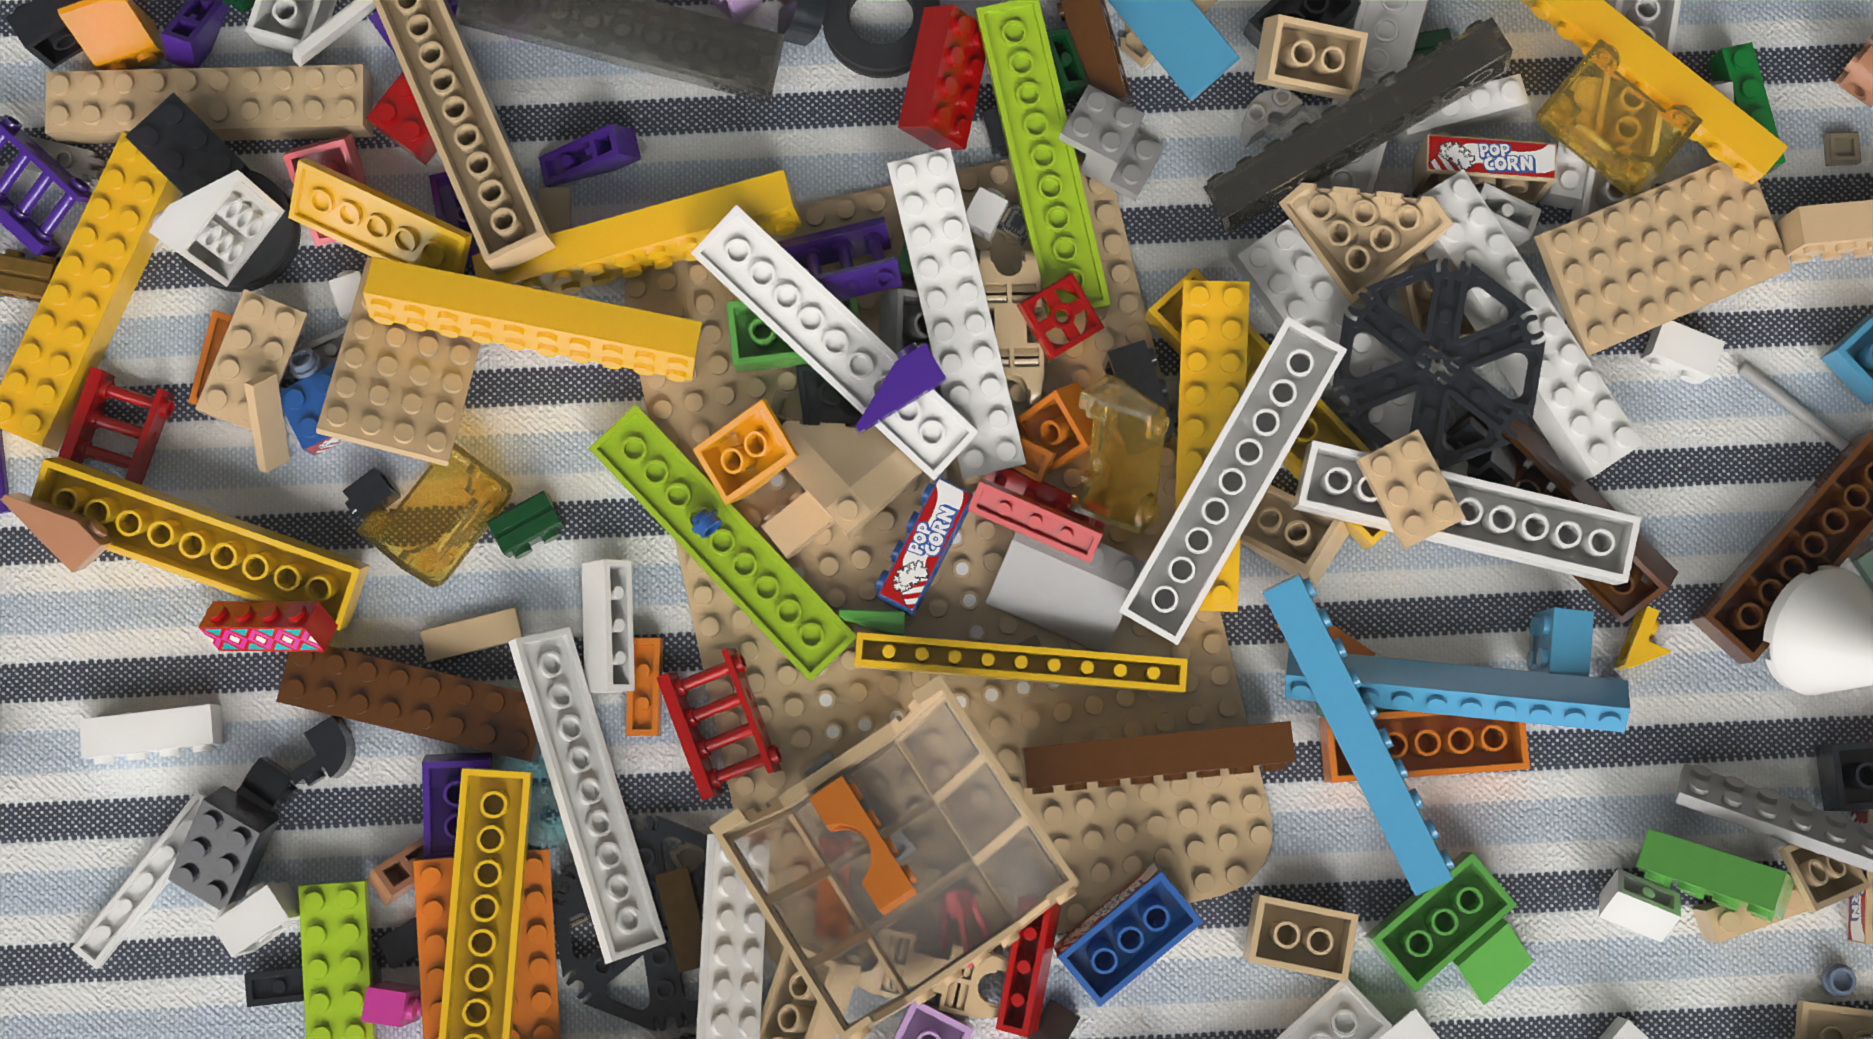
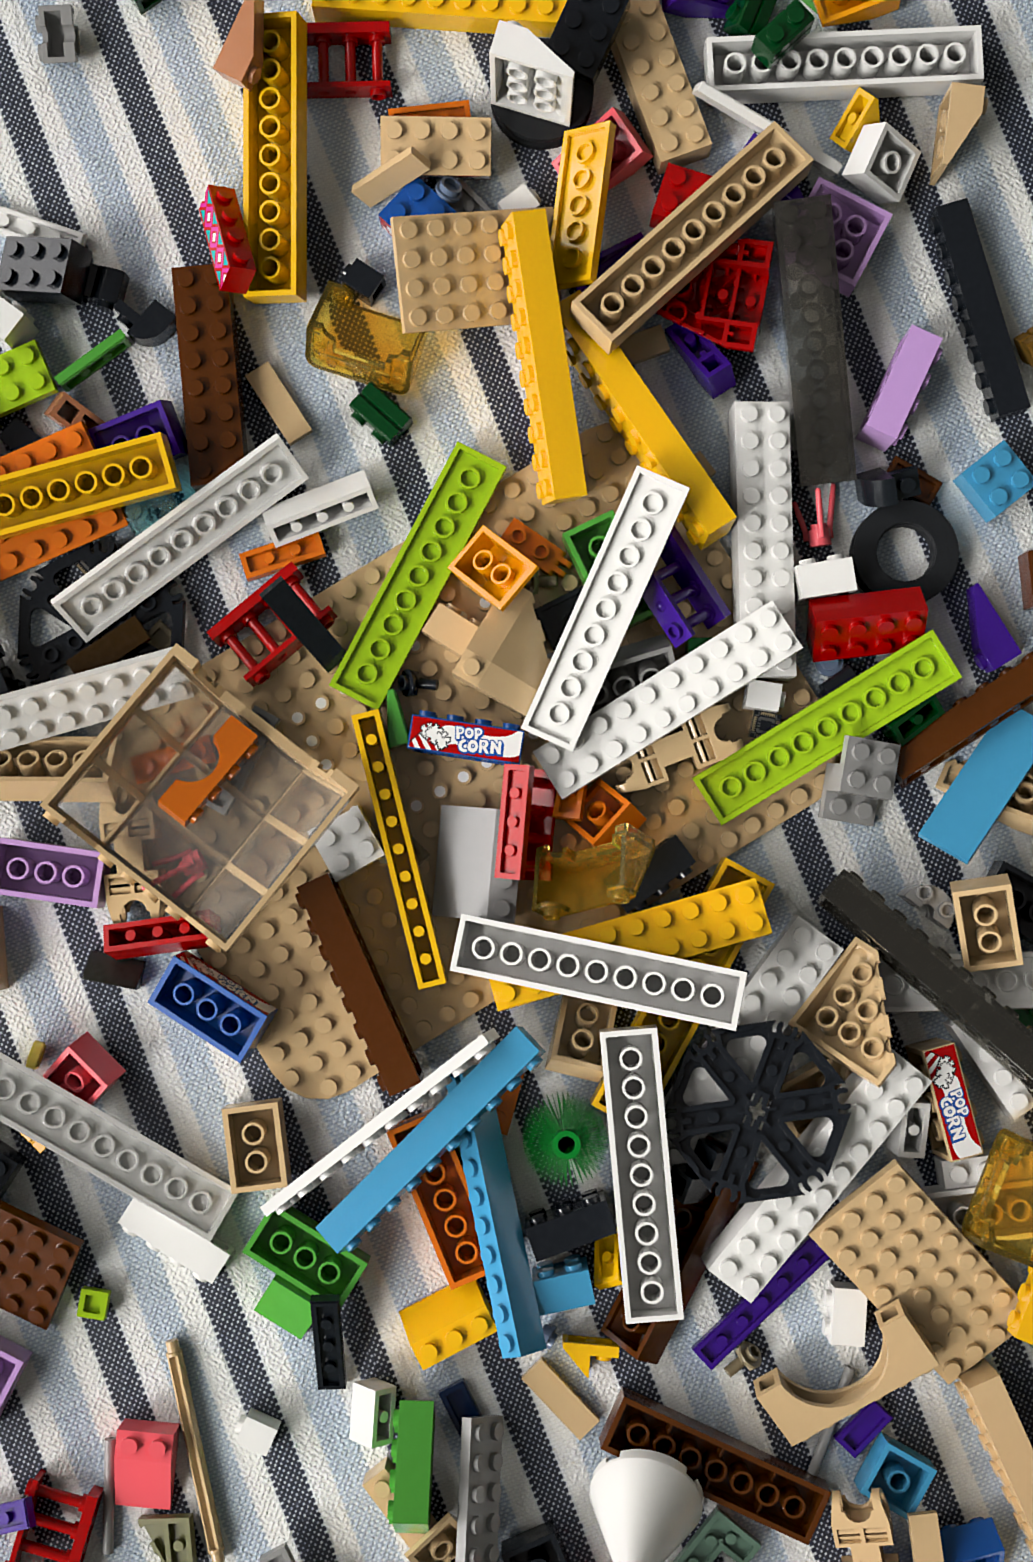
camera: 70 degrees right, 5 degrees up
(151, 731) = (117, 180): white brick -> none
(346, 828) = (93, 360): none -> bright green tile
(536, 105) = (727, 296): none -> red wedge
(706, 523) = (427, 557): blue plate -> none
(733, 683) = (303, 624): none -> black tile
(736, 401) = (536, 548): none -> orange hinge
(765, 139) = (764, 515): none -> white brick
(828, 94) = (819, 533): none -> coral plant
(836, 590) = (410, 682): none -> black plate
(880, 109) = (823, 578): none -> white brick
(907, 381) = (588, 677): dark purple slope -> none
(977, 135) = (830, 667): none -> sand blue plate
(999, 715) = (349, 844): none -> white brick
(1039, 329) = (697, 816): red piece -> none
(1326, 793) = (375, 1128): none -> white plate
(1400, 588) = (564, 1149): none -> green piece
(1410, 489) = (642, 1121): tan plate -> none
(1496, 614) = (569, 1224): none -> black brick
(1546, 927) = (328, 1341): none -> black tile
(1547, 585) = (607, 1262): none -> yellow slope
(1564, 788) = (447, 1322): none -> yellow slope
(1653, 456) = (748, 1316): none -> dark purple tile
(1659, 807) = (459, 1403): none -> dark blue tile
(1684, 692) = (560, 1398): none -> tan tile
(1697, 471) = (748, 1356): none -> dark tan plate
(1777, 427) = (806, 1411): none -> tan arch
(1810, 375) = (862, 1428): none -> dark purple tile

